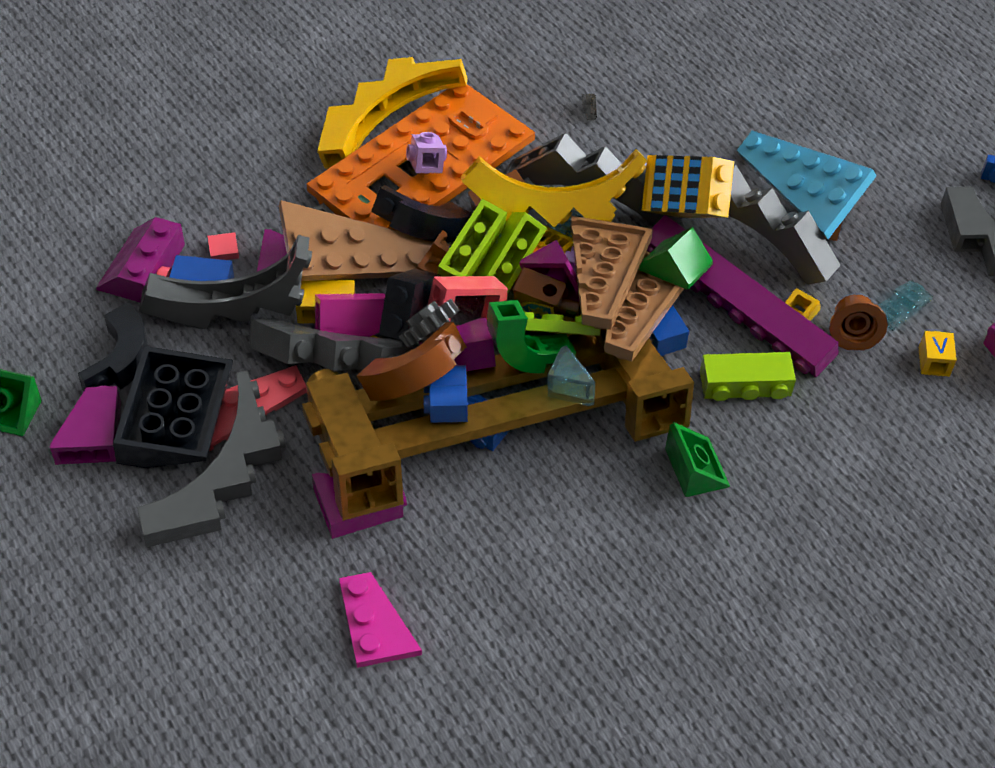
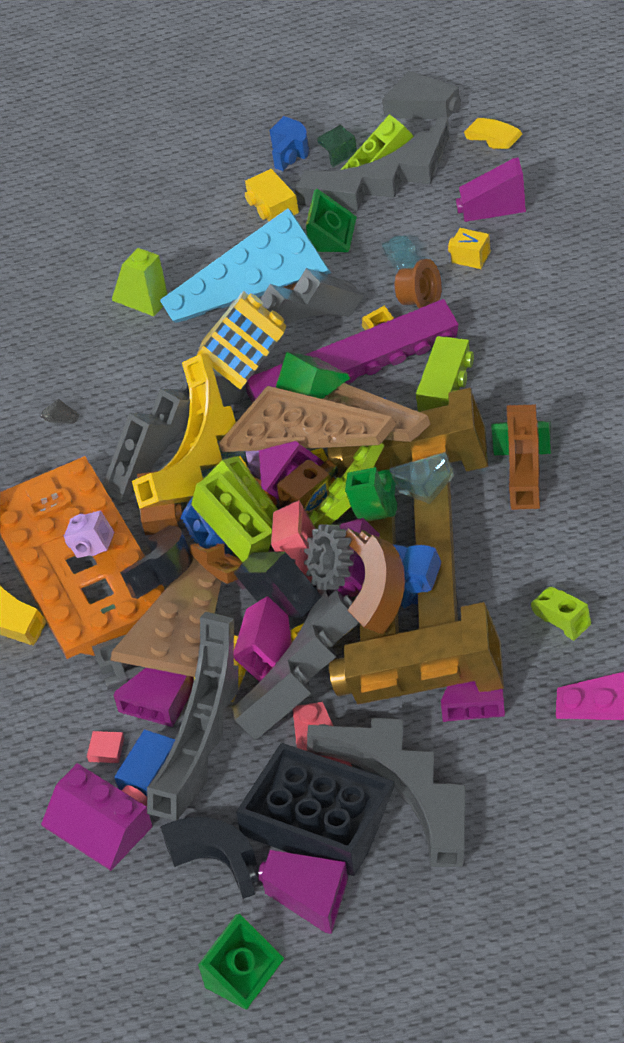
camera: 60 degrees left, 5 degrees down
(466, 553) = (562, 611): none -> lime leg
(649, 470) = (523, 457): none -> dark orange arch
(760, 106) = (141, 283): none -> lime slope
(914, 228) = (329, 224): none -> green slope
(931, 175) = (270, 195): none -> yellow brick

